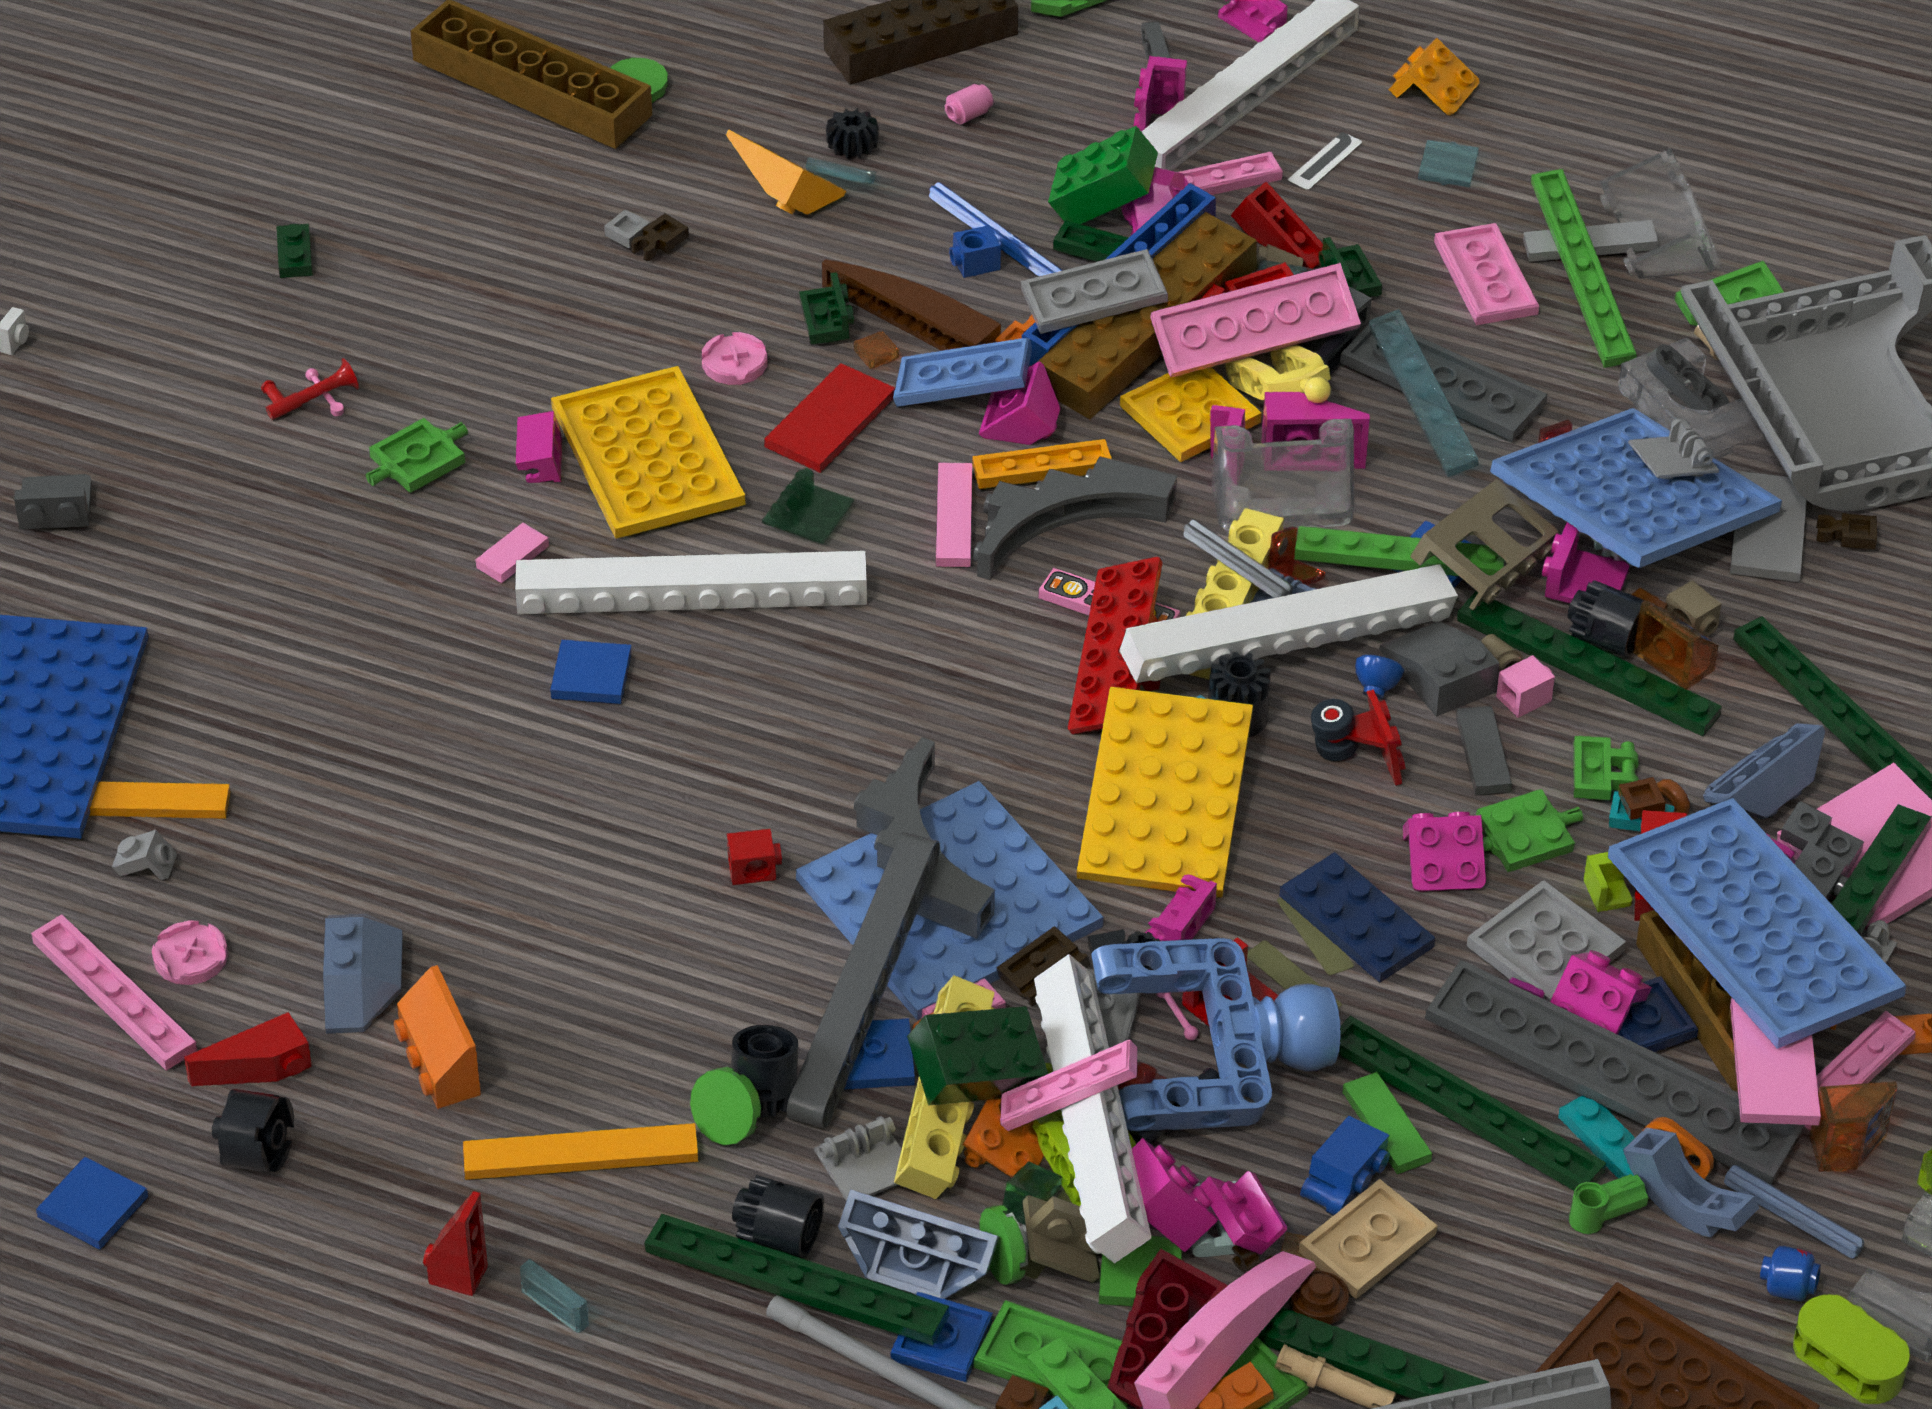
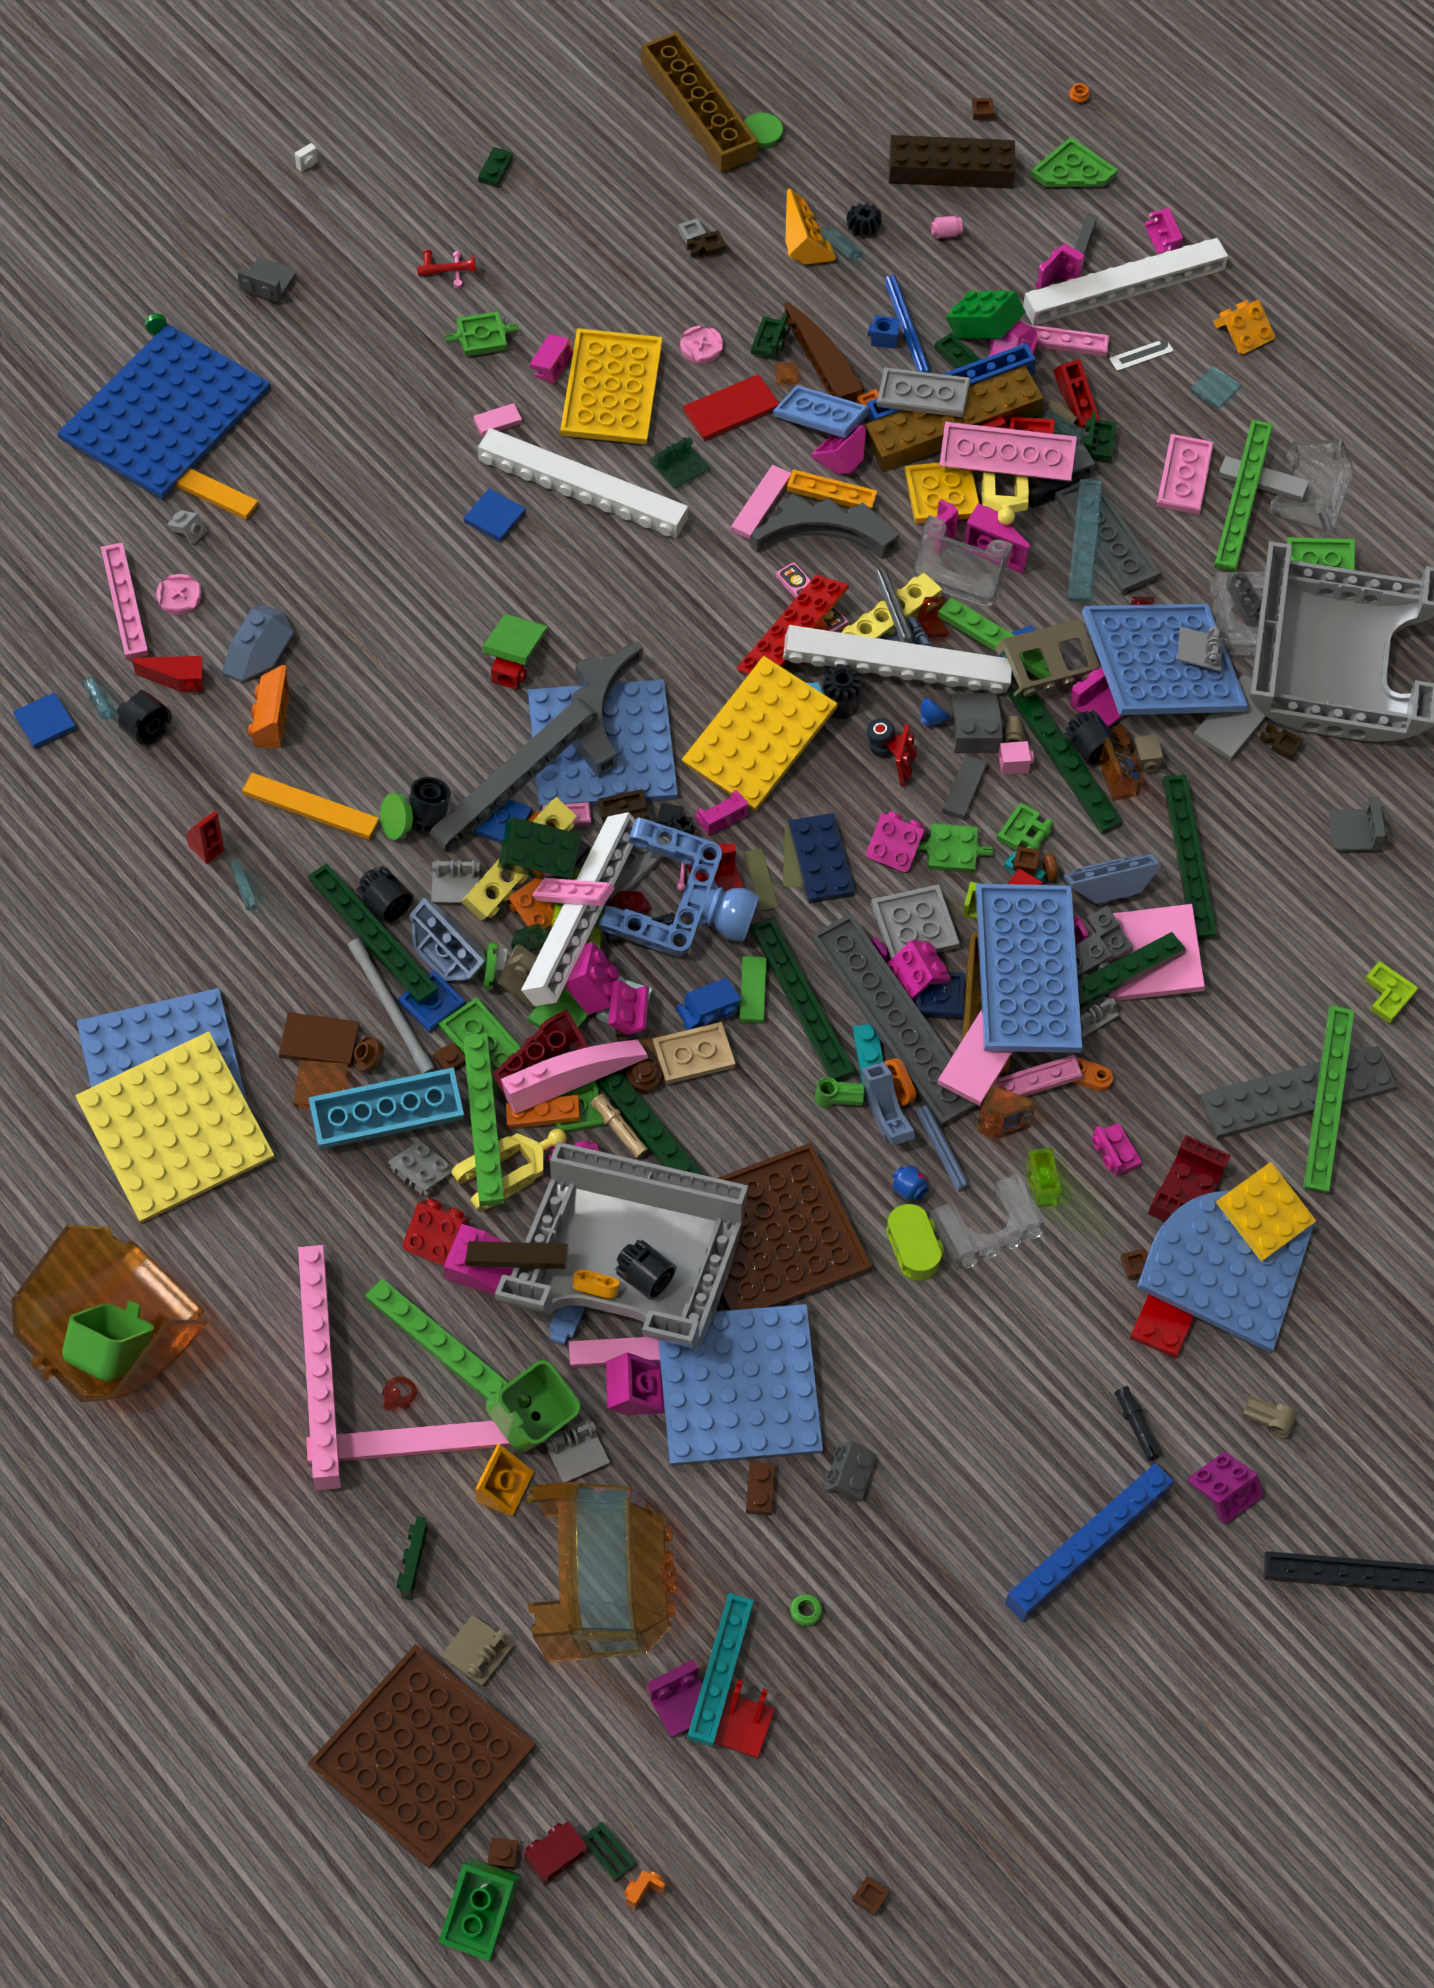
camera: 25 degrees right, 15 degrees up
(158, 1136) = (98, 697): none -> clear light blue pin
(736, 810) = (514, 639): none -> bright green tile

